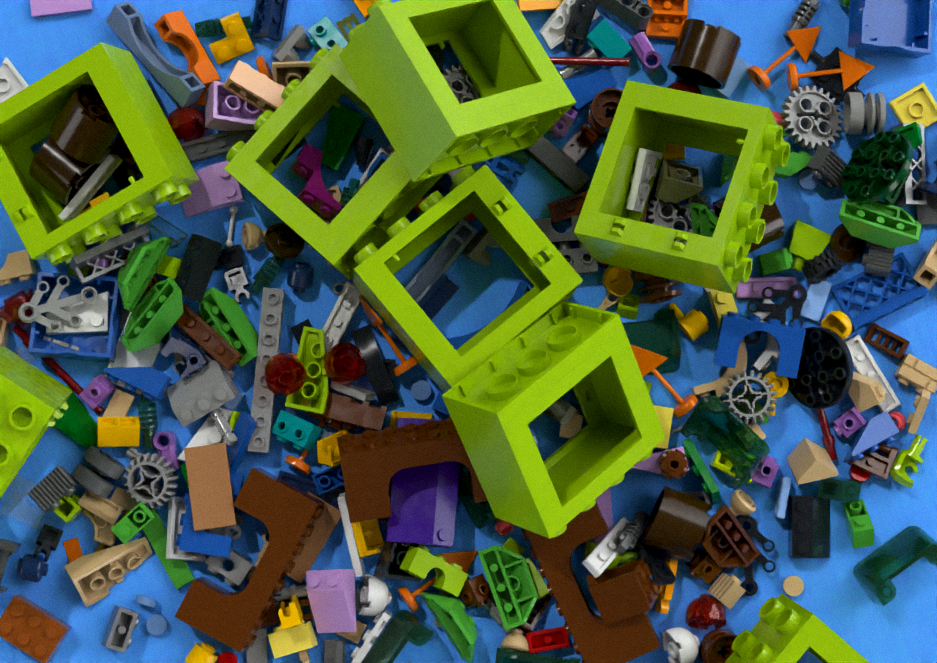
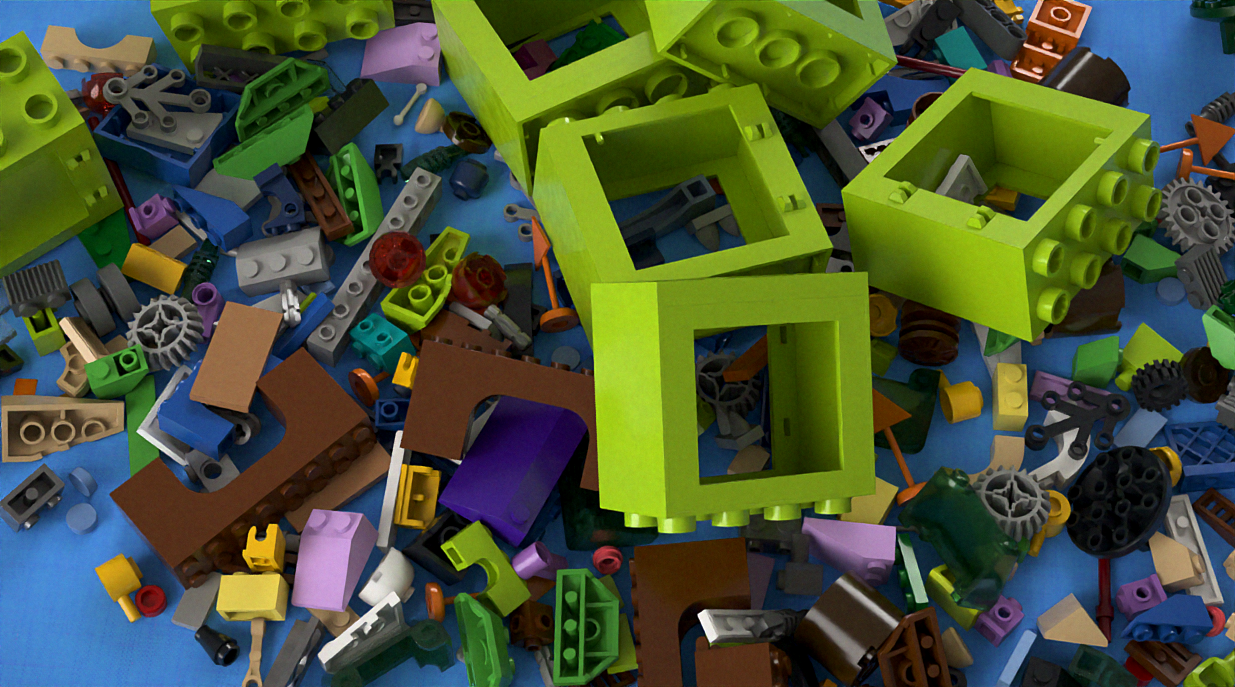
camera: 20 degrees right, 25 degrees down
(231, 258) = (392, 132): black plate -> none
(341, 315) = (505, 233): white tile -> none
(376, 388) = (508, 327): none -> light grey axle
(464, 550) = (538, 561): none -> medium lavender piece
(632, 497) = (798, 576): none -> clear smoke brick
(665, 461) = (874, 535): reddish brown brick -> none
(735, 328) = (1020, 408): blue arch -> none

